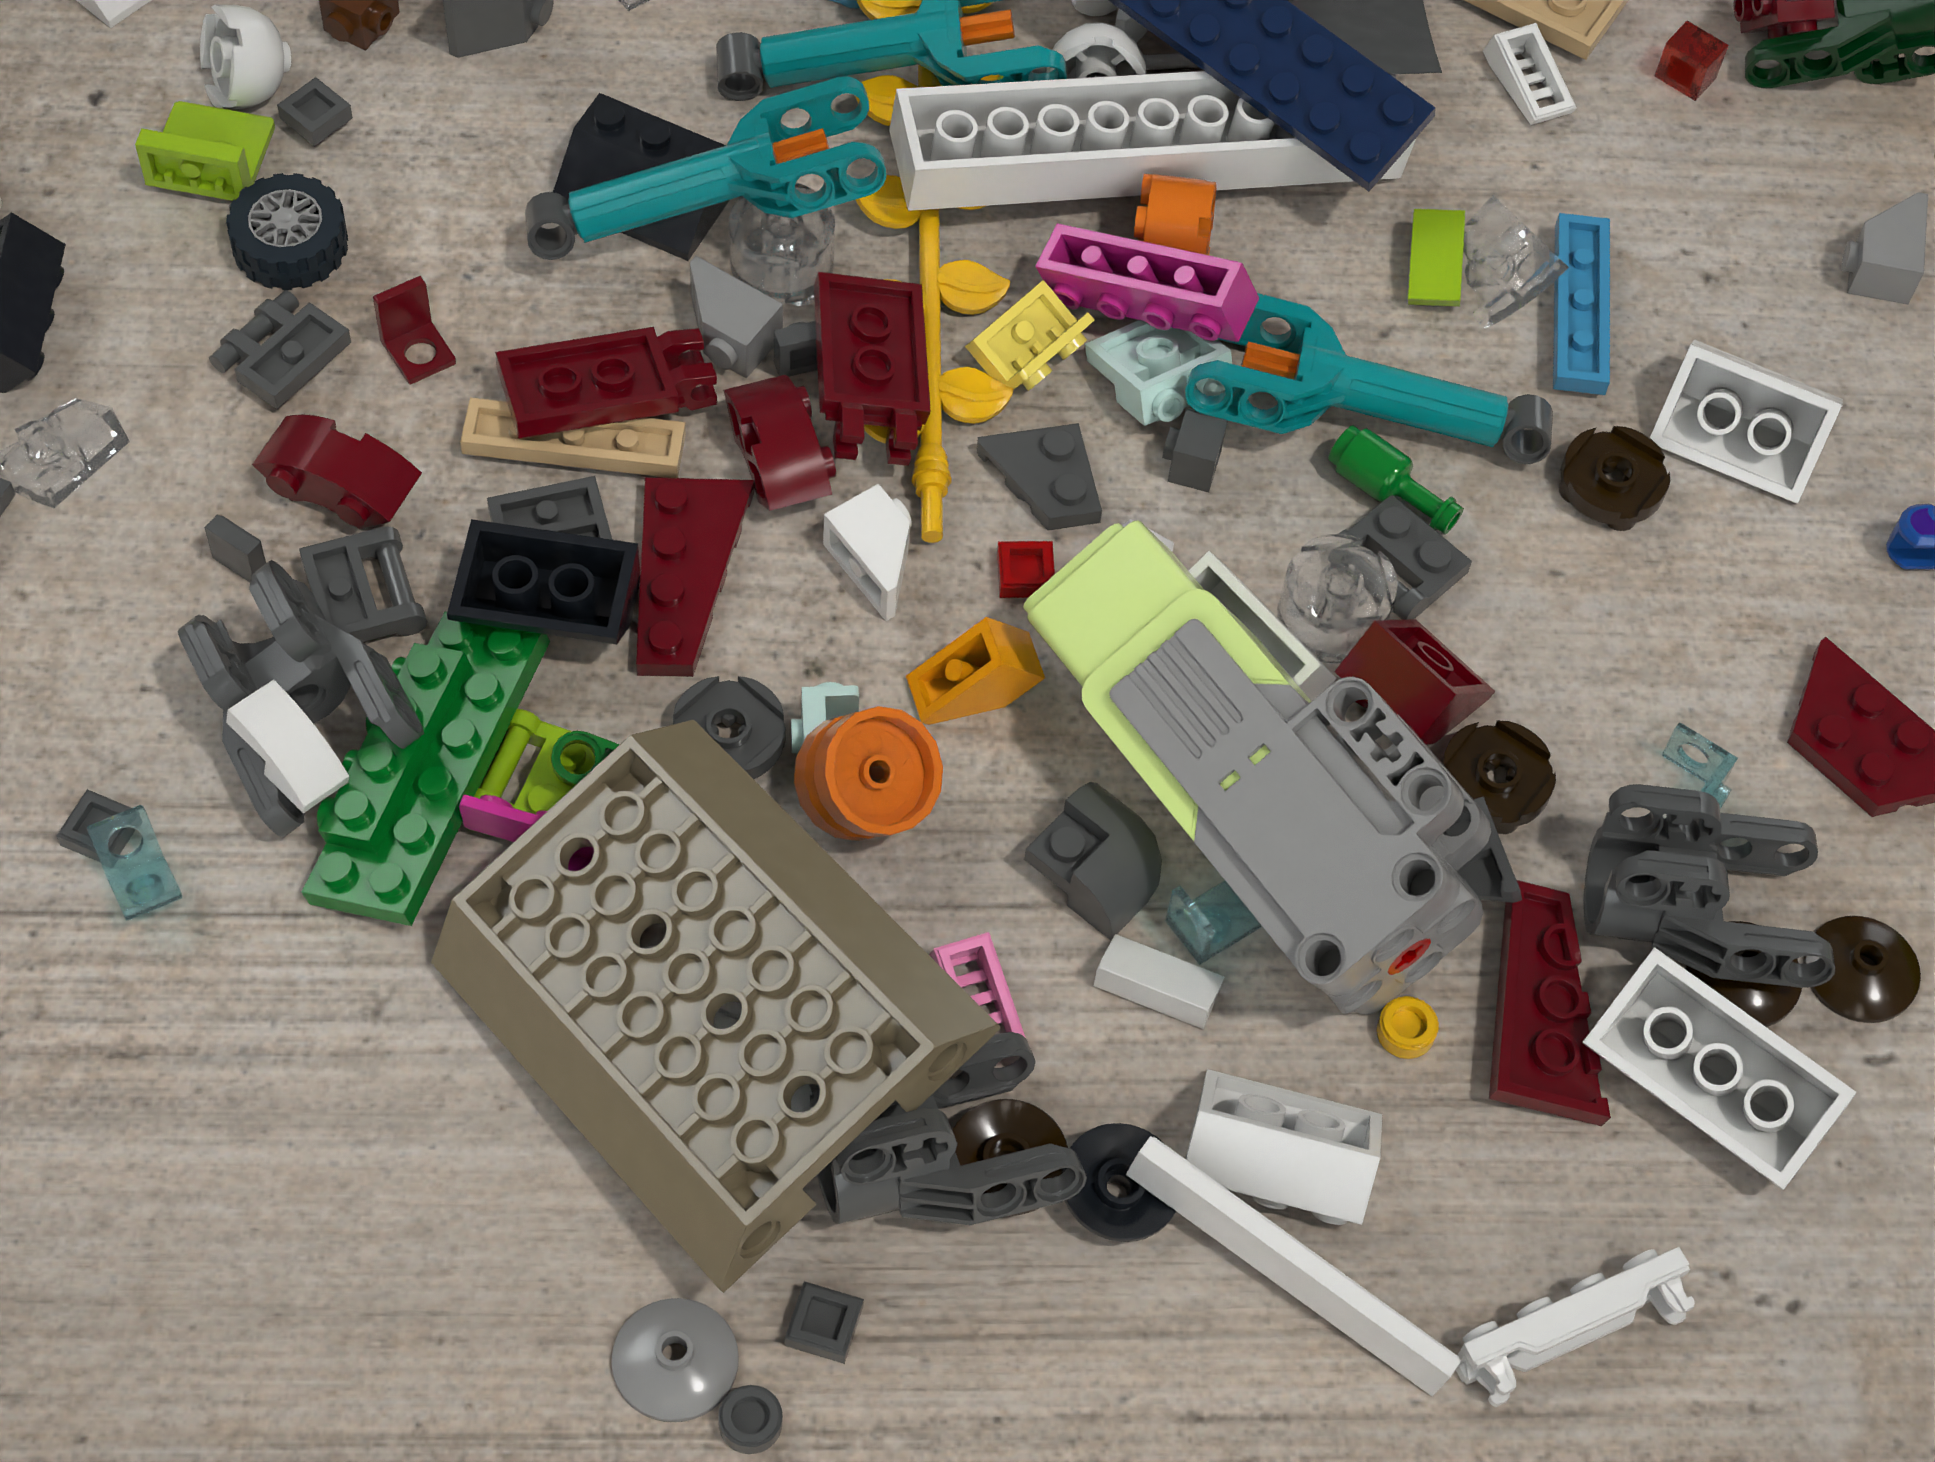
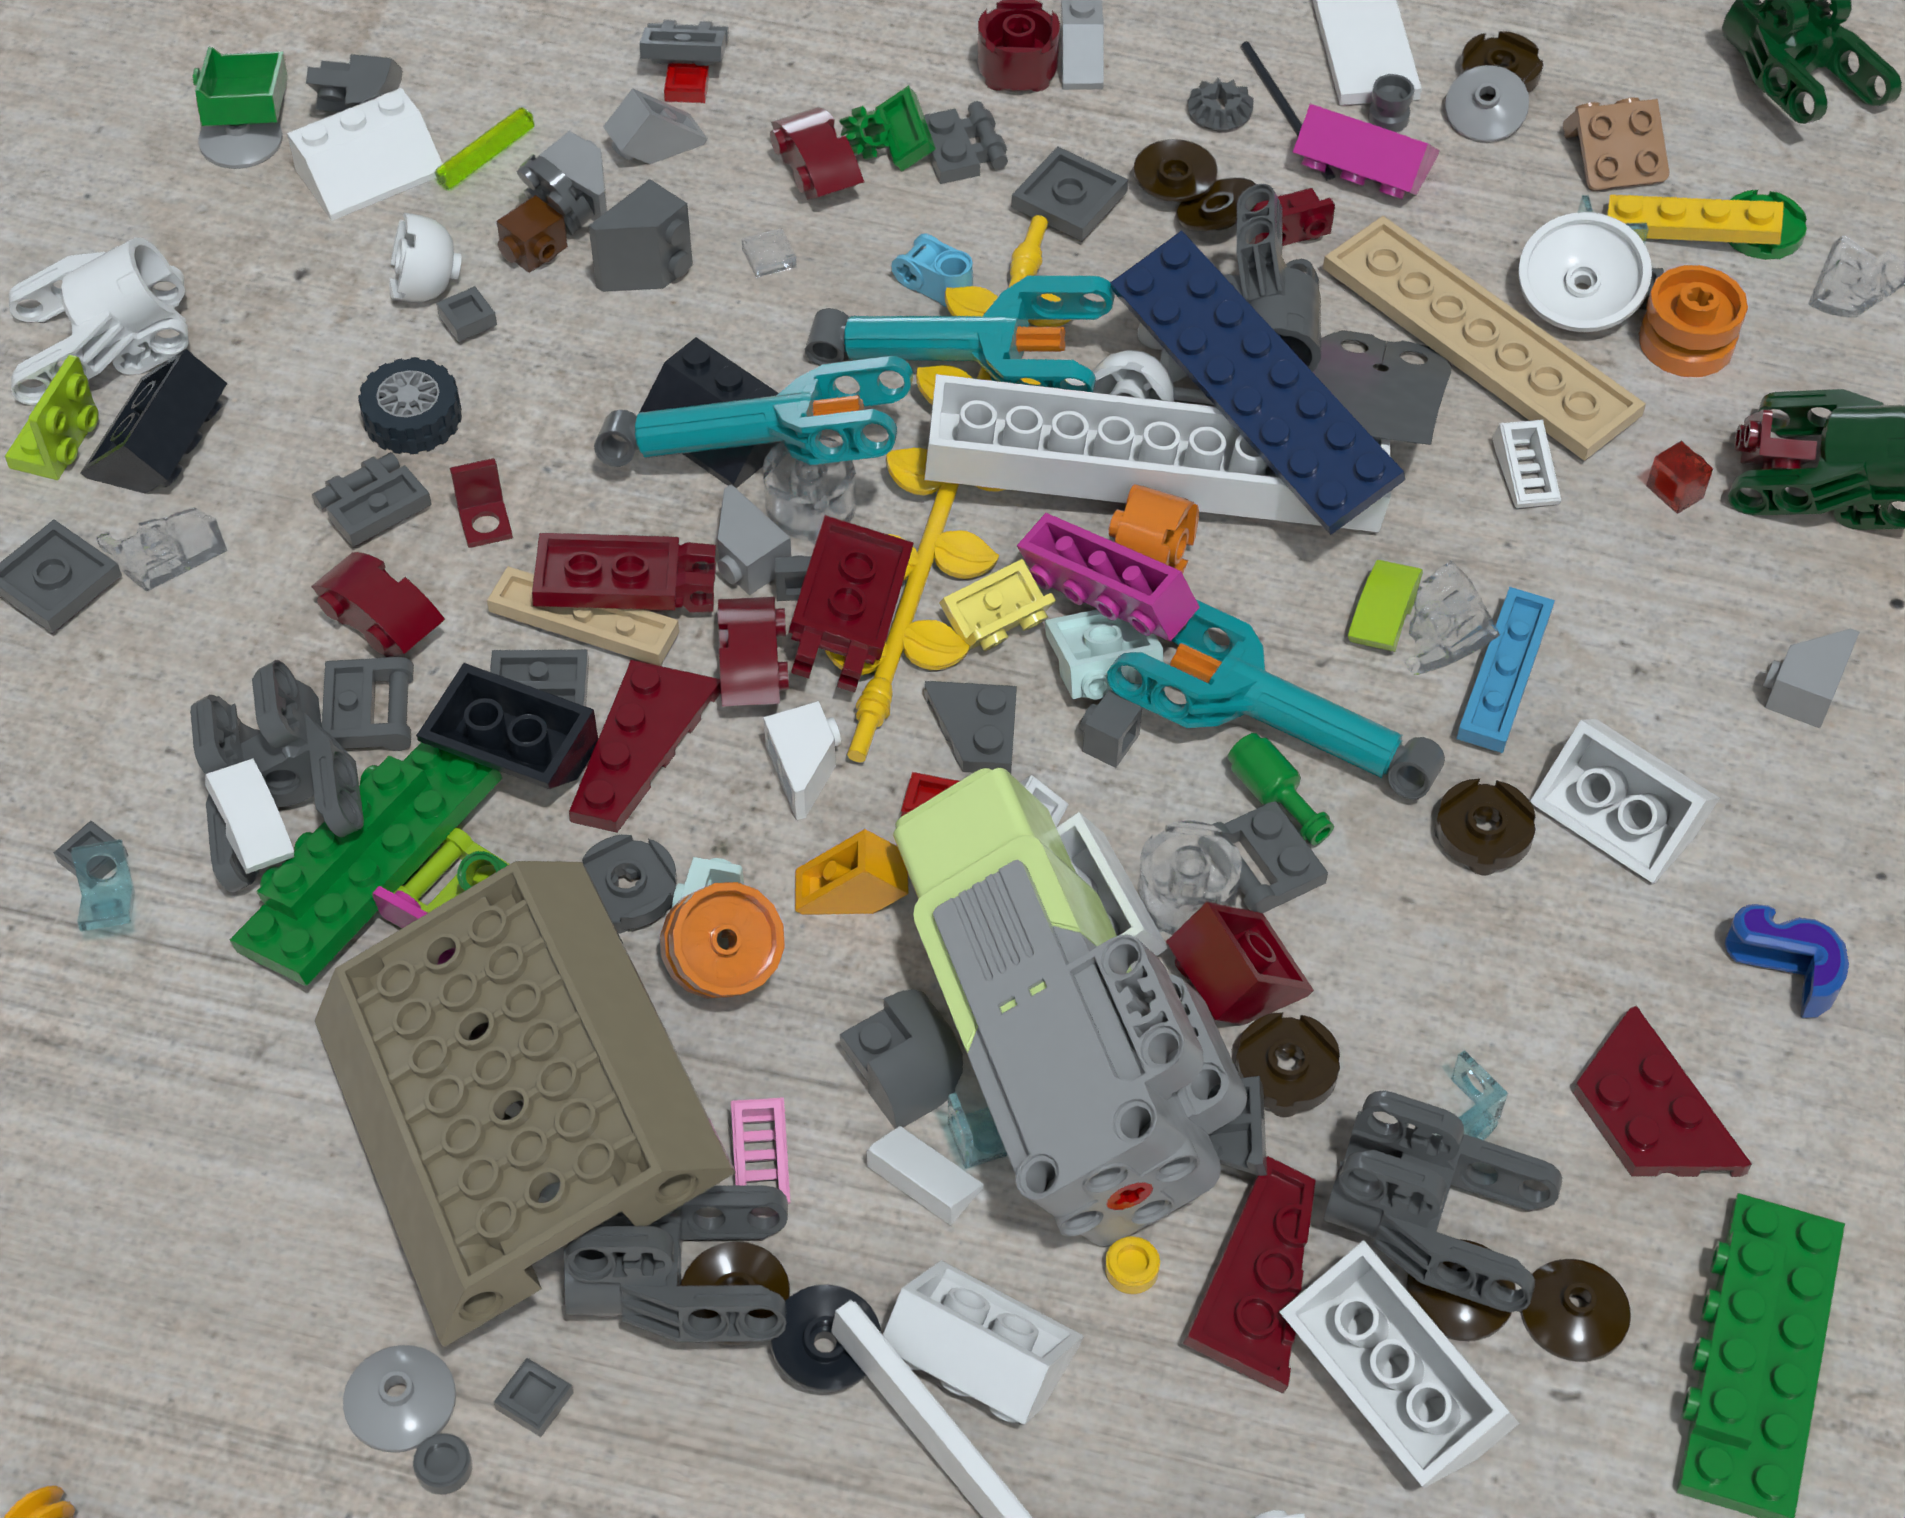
camera: 20 degrees right, 5 degrees down
(205, 150) = (366, 328): lime bracket -> none
(234, 547) = (275, 647): dark grey tile -> none

